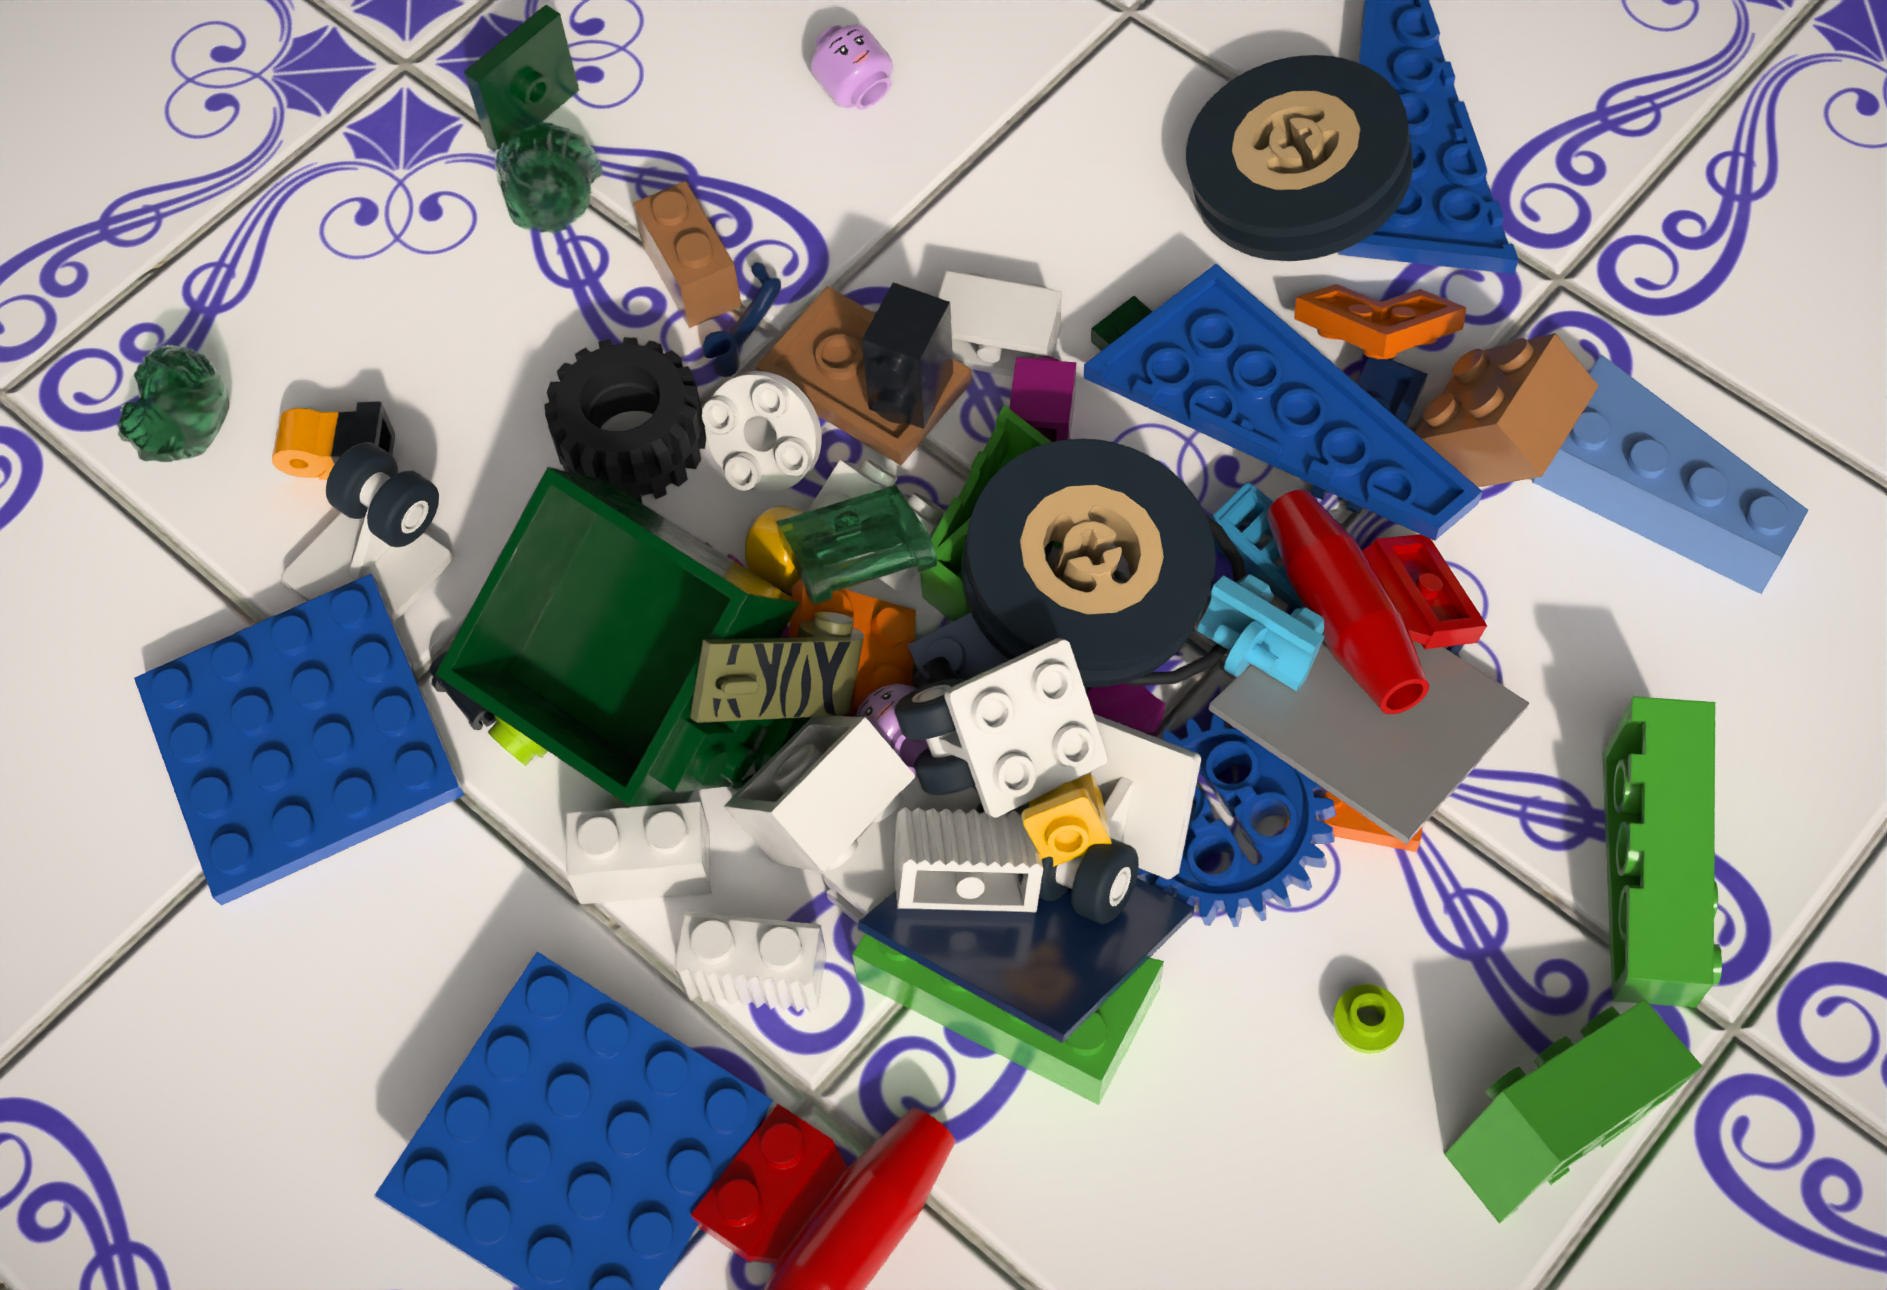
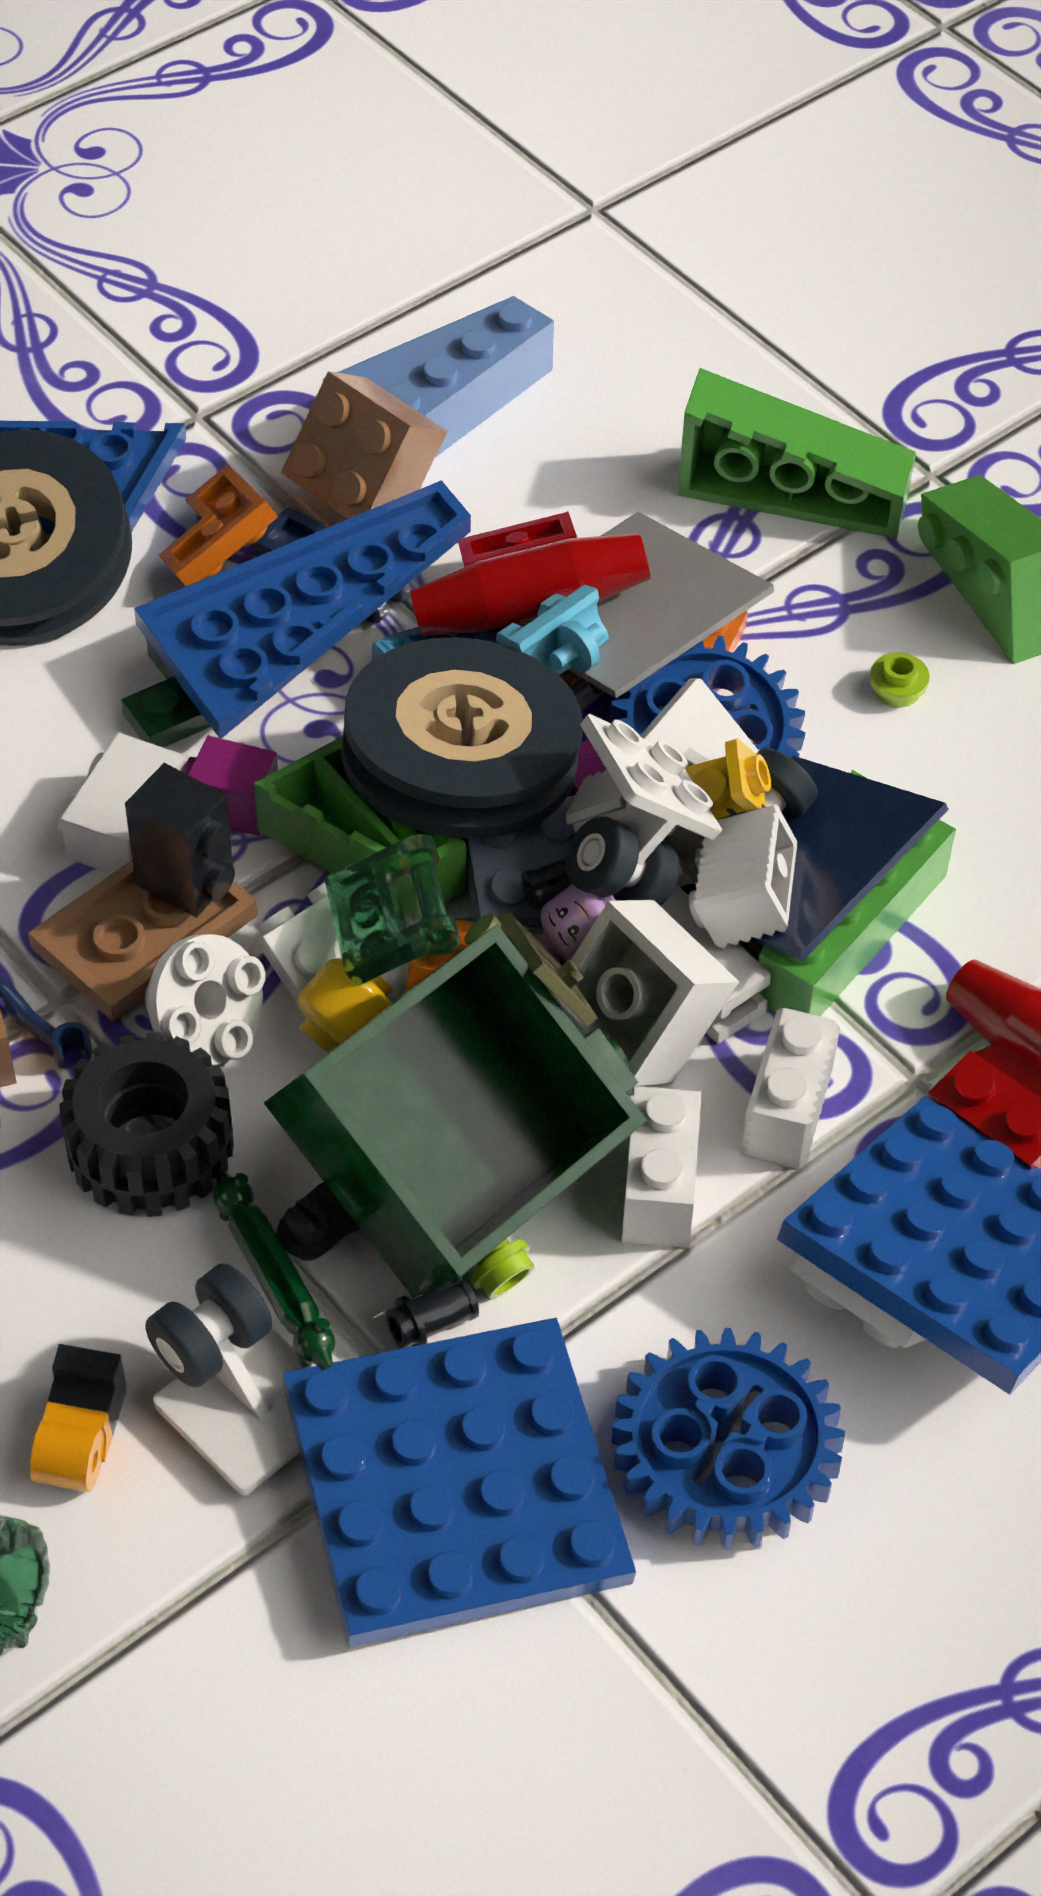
camera: 85 degrees left, 10 degrees down
(319, 1008) = (786, 1466): none -> blue gear
(449, 570) = (274, 1270): none -> dark green wheel

